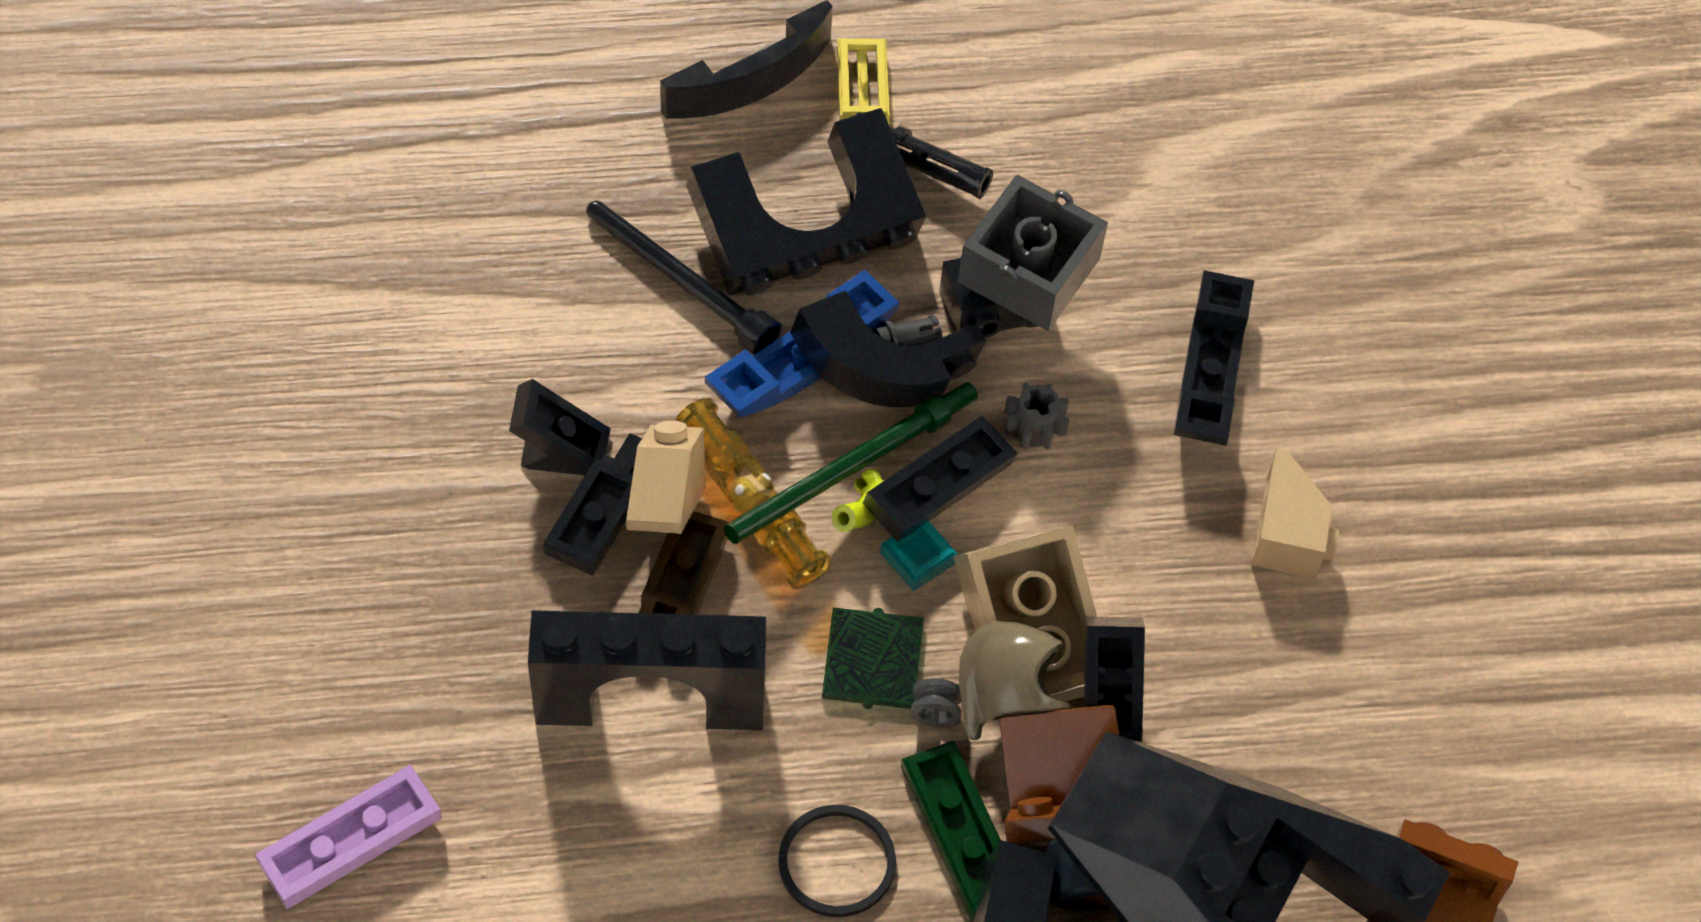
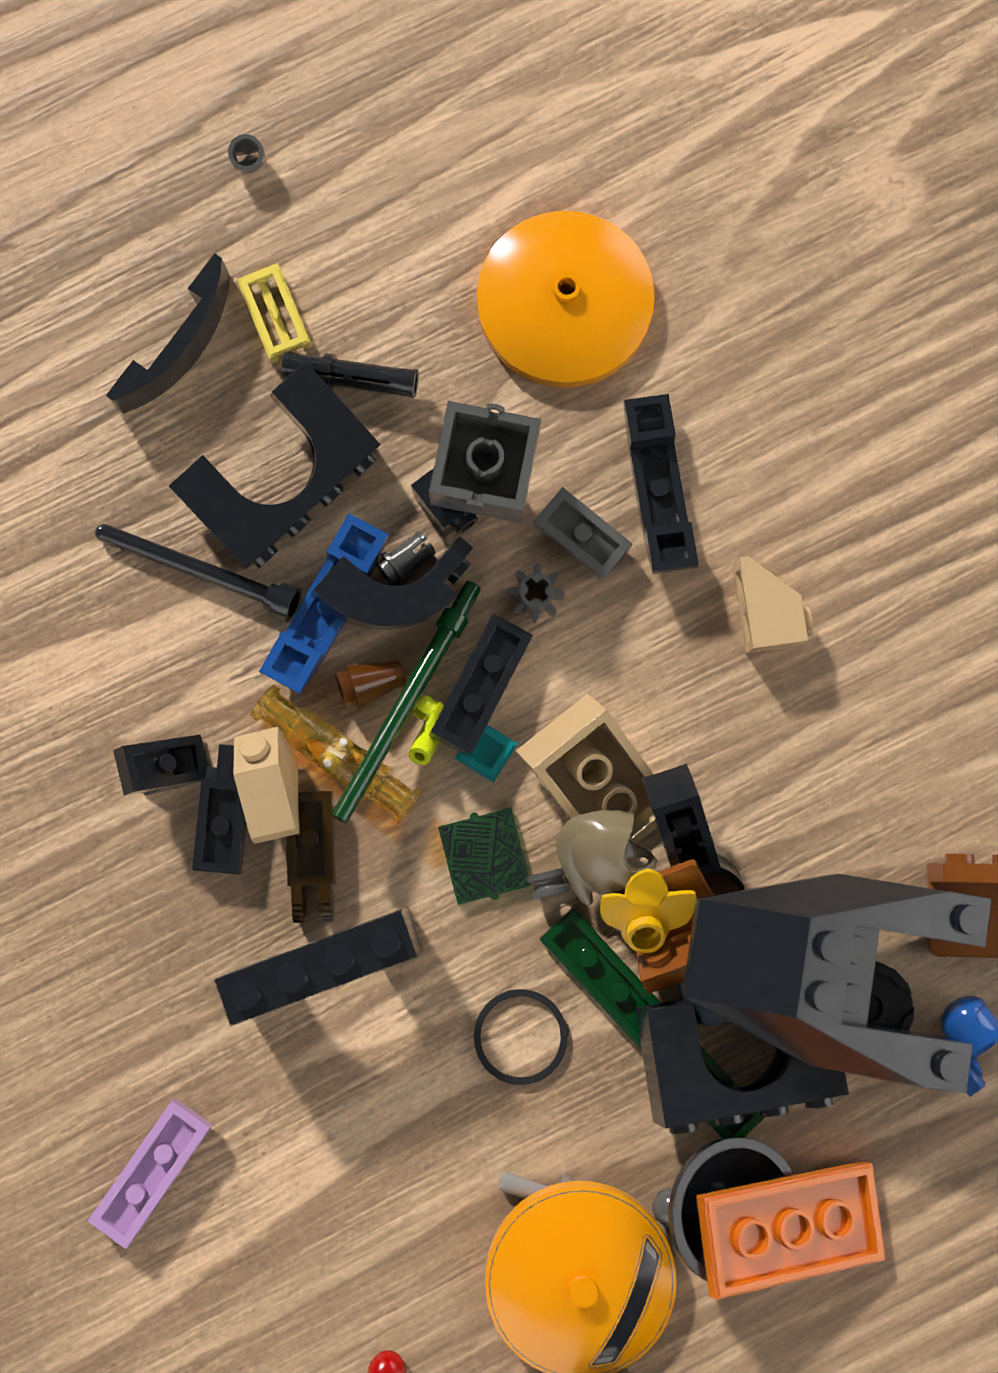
camera: 15 degrees left, 25 degrees up
(815, 436) = (367, 682): none -> reddish brown cone
(1041, 734) = (647, 910): none -> yellow plate
(1110, 380) = (582, 534): none -> dark grey plate
(1175, 170) = (557, 335): none -> light orange dish

